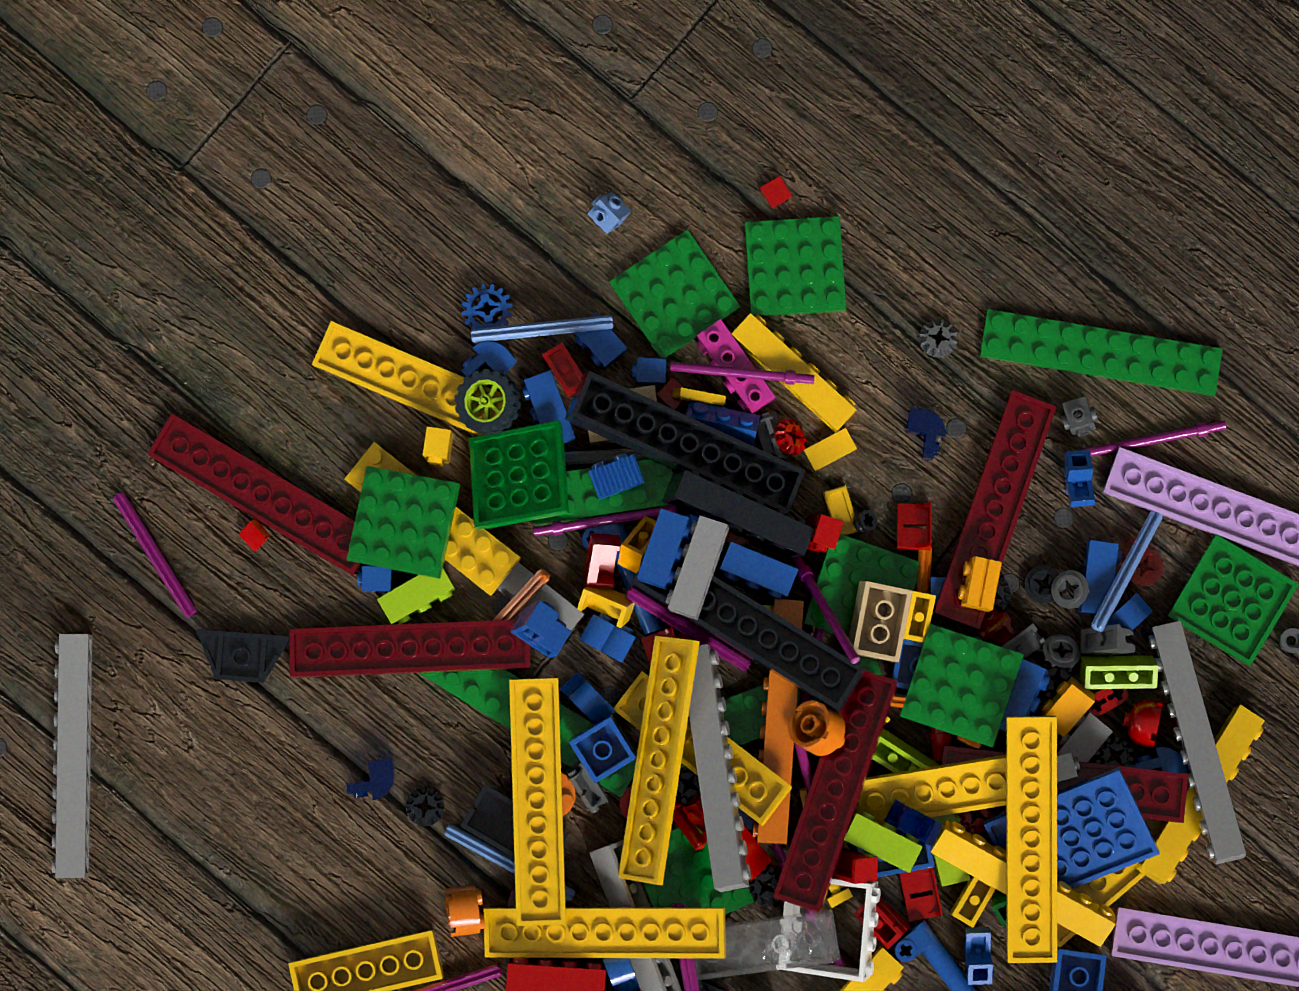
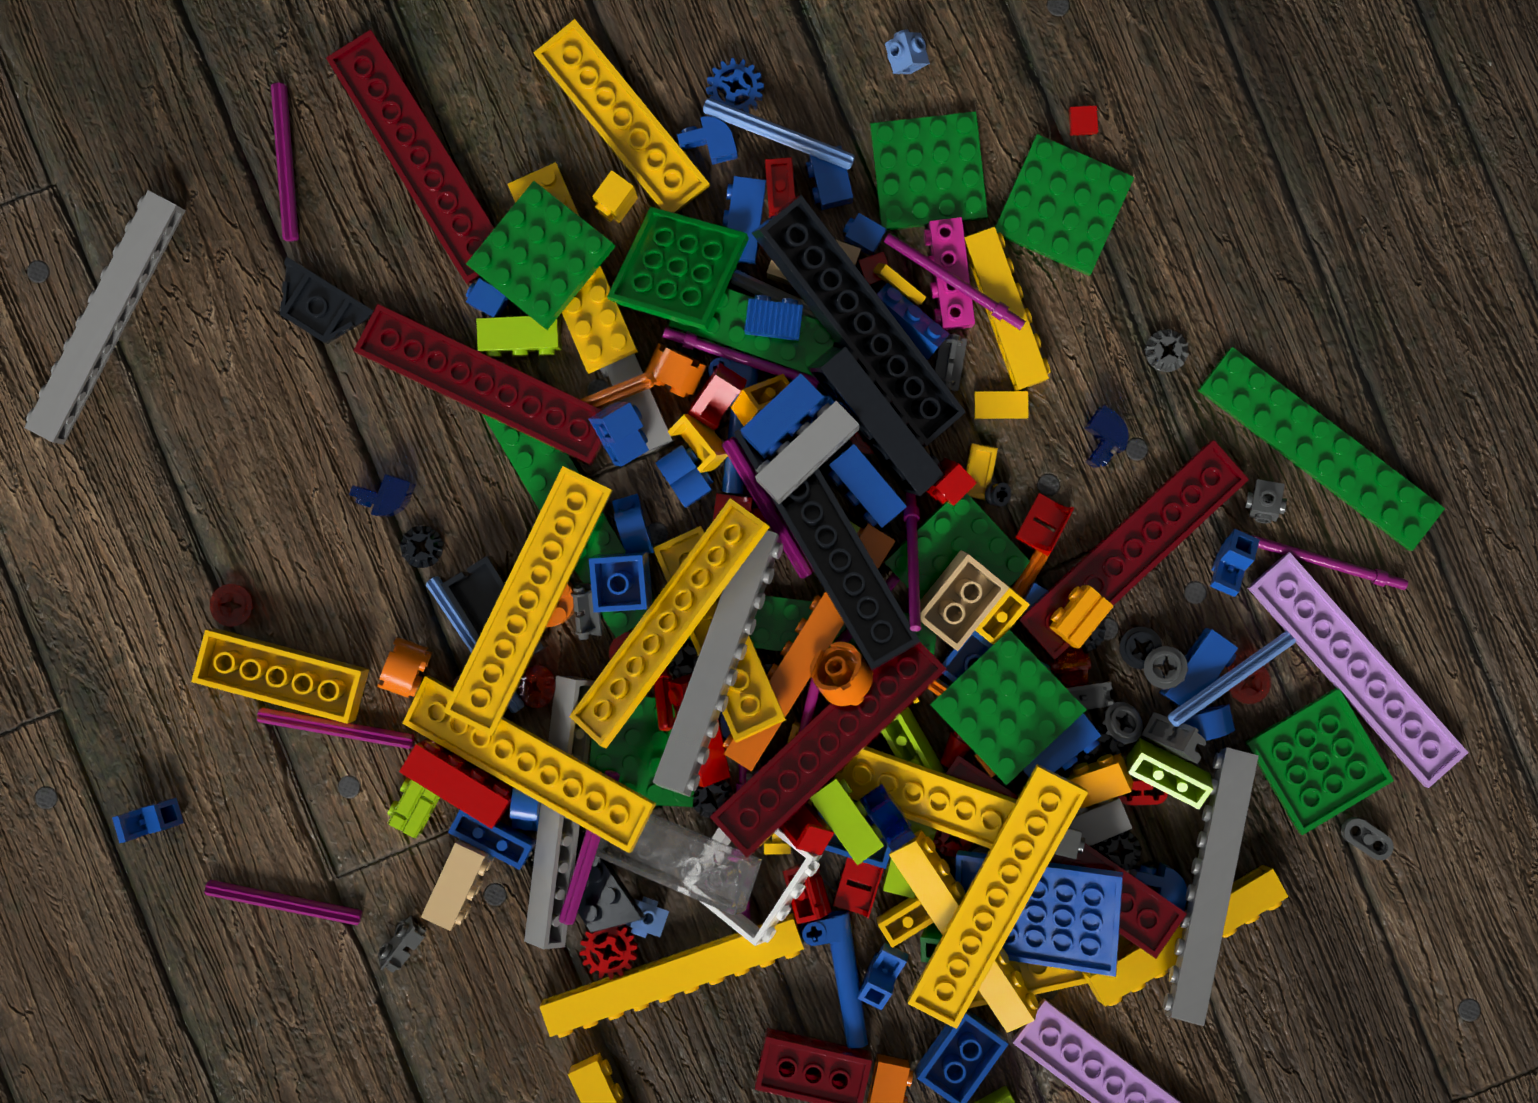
camera: 30 degrees right, 5 degrees up
(254, 535) = (391, 193): red tile -> none
(291, 946) = (222, 613): none -> clear red gear
(466, 396) = (668, 162): black wheel -> none
(558, 557) = (675, 370): none -> orange brick
(584, 863) = (545, 682): none -> clear red gear
(785, 442) = (961, 372): red gear -> none
(1144, 722) = (1168, 836): red cylinder -> none

